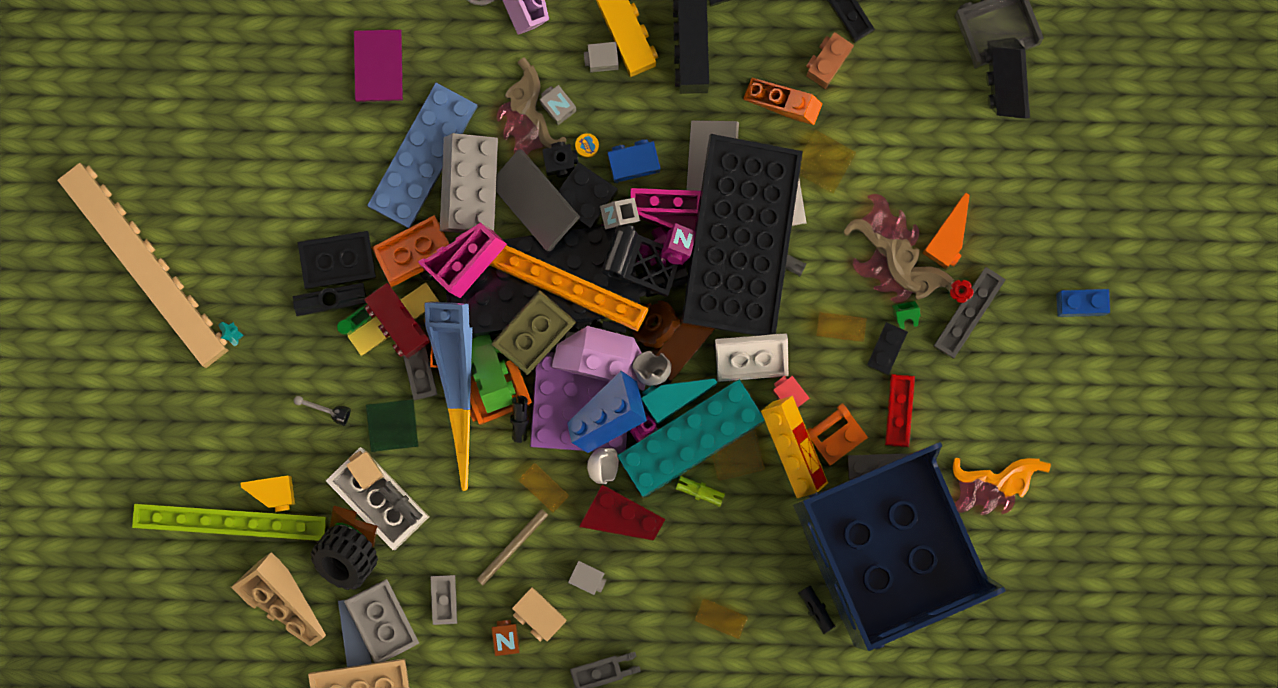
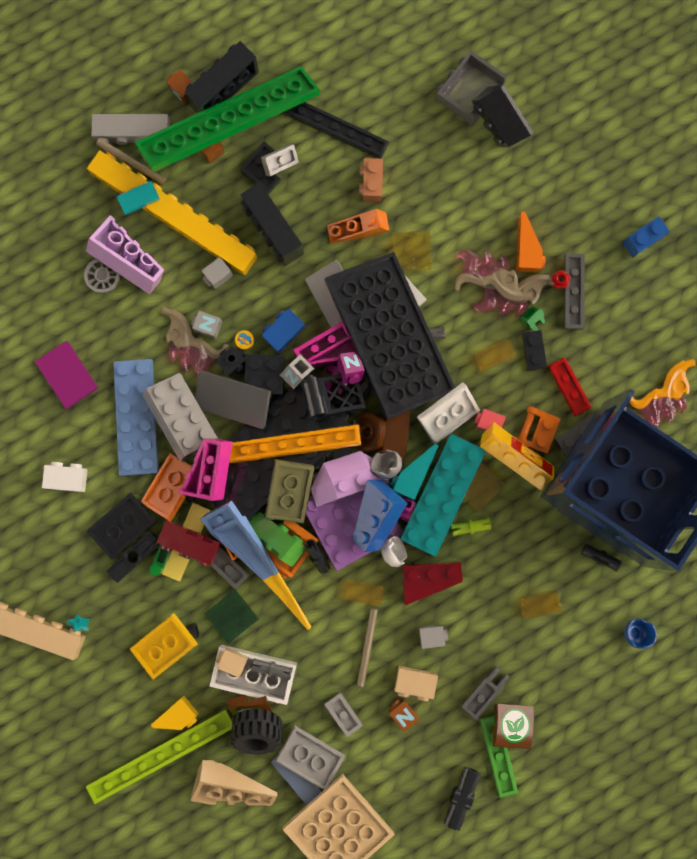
camera: 30 degrees left, 0 degrees up
(302, 411) = (163, 646): none -> yellow tile
(309, 173) = (64, 478): none -> white brick

